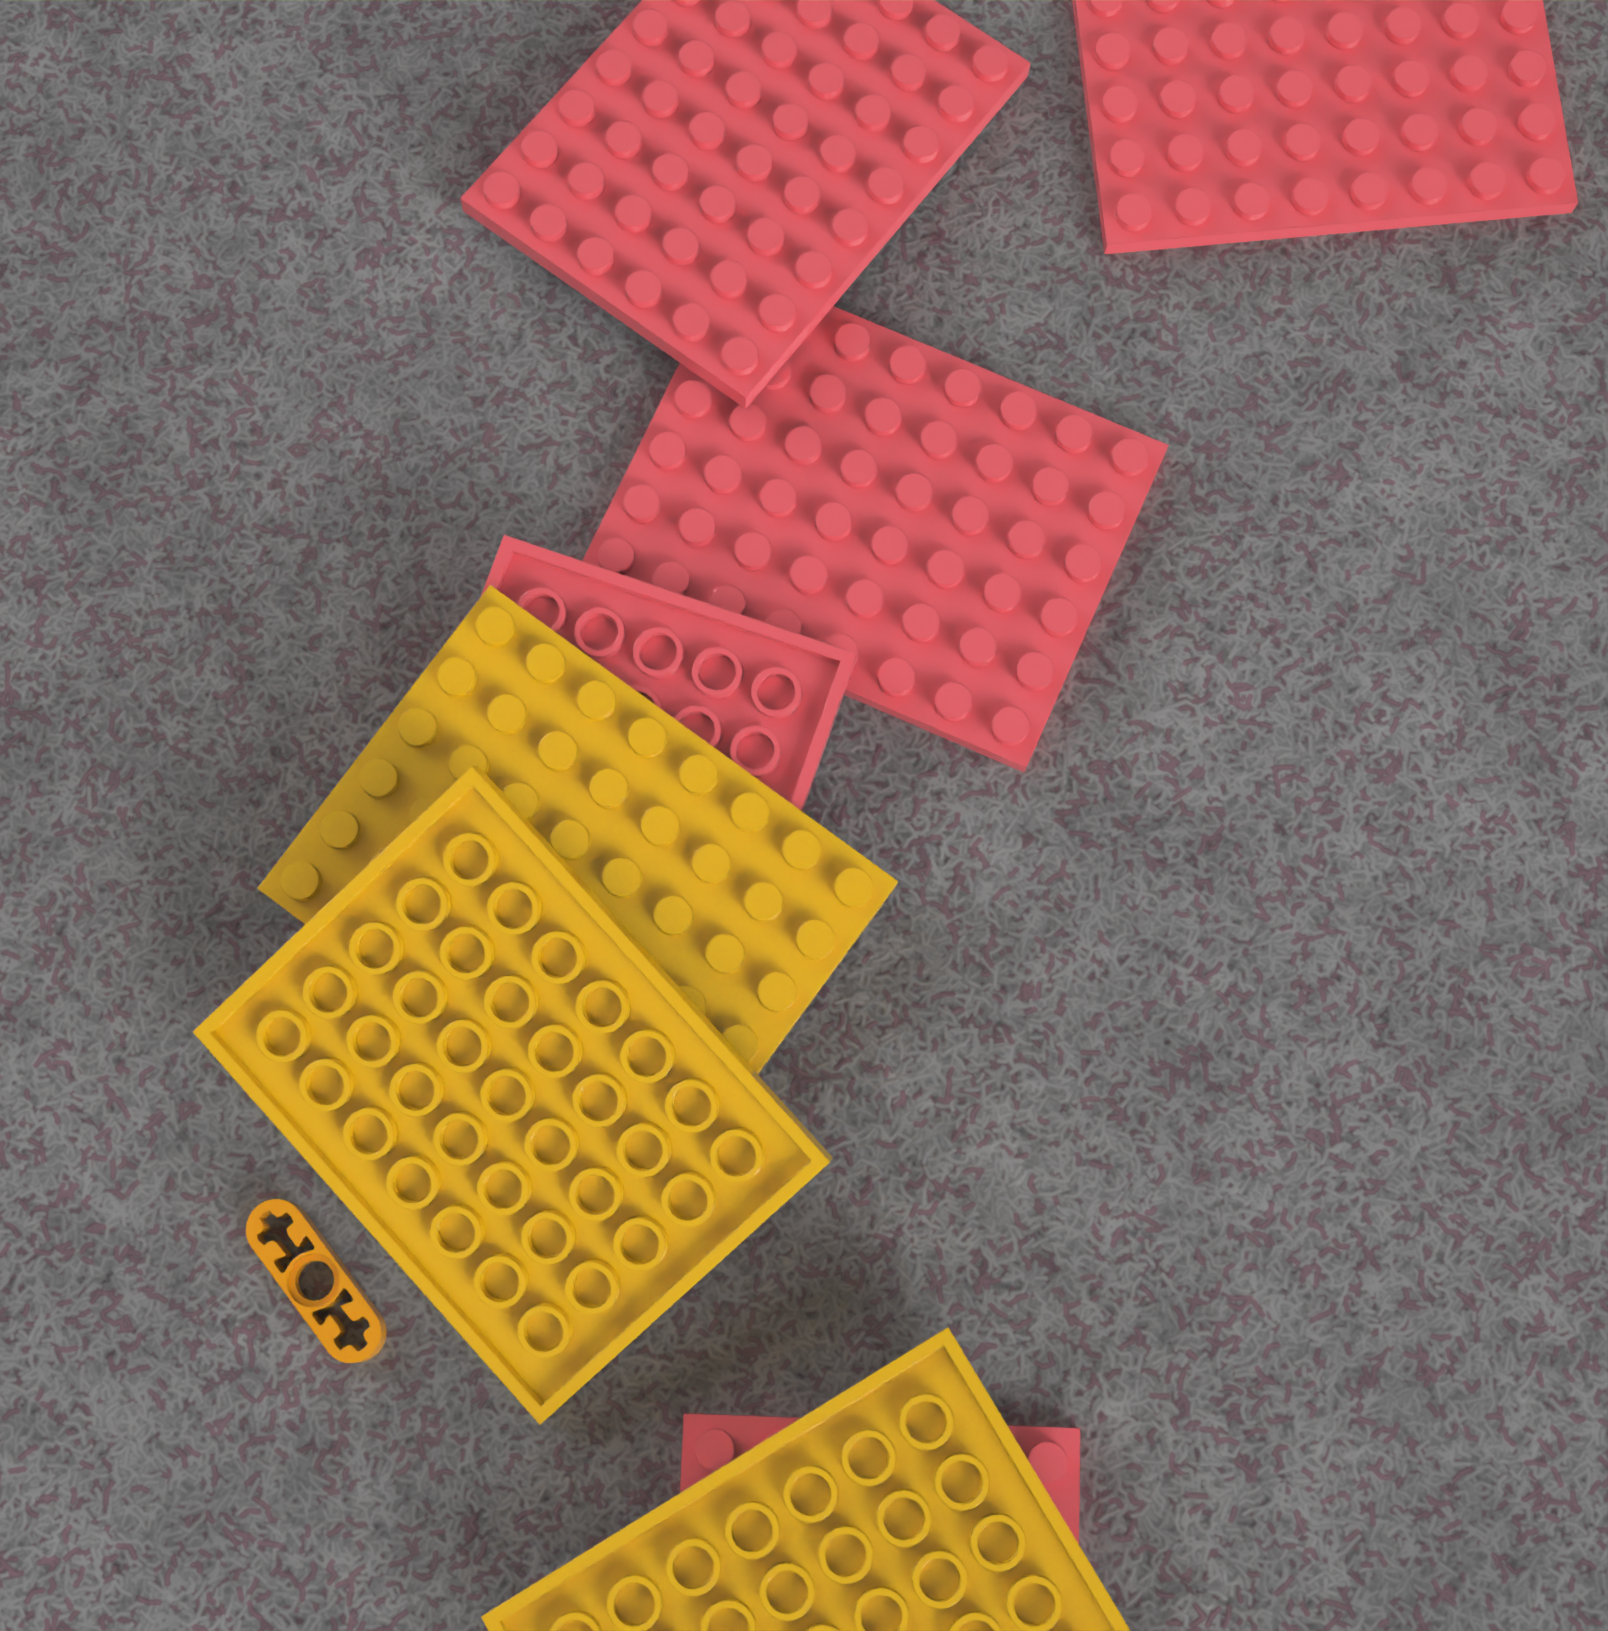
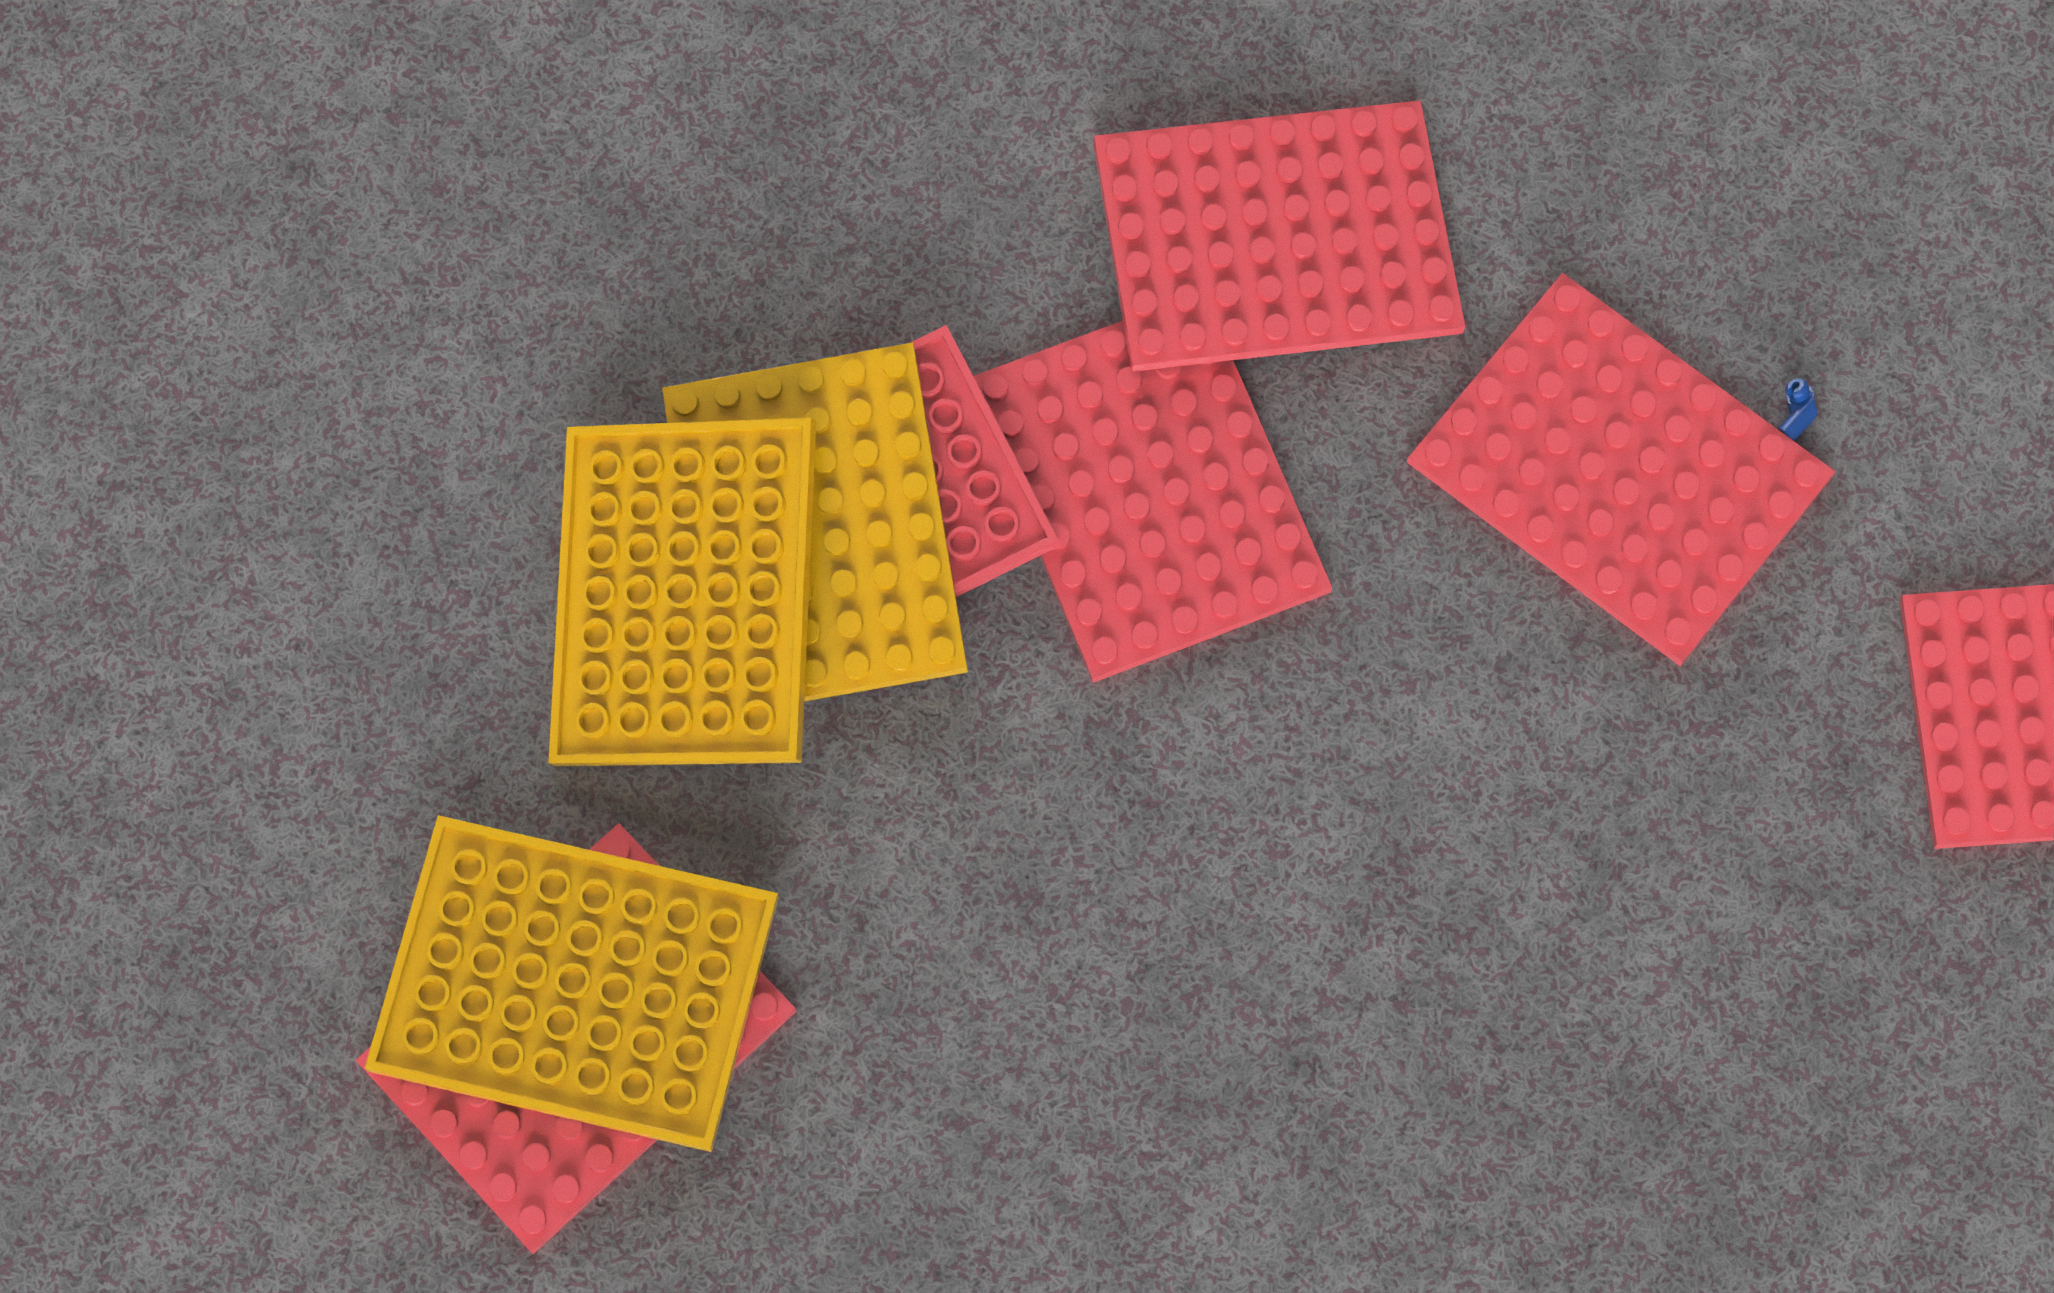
camera: 45 degrees right, 5 degrees down
(332, 1328) = (504, 569): light orange beam -> none

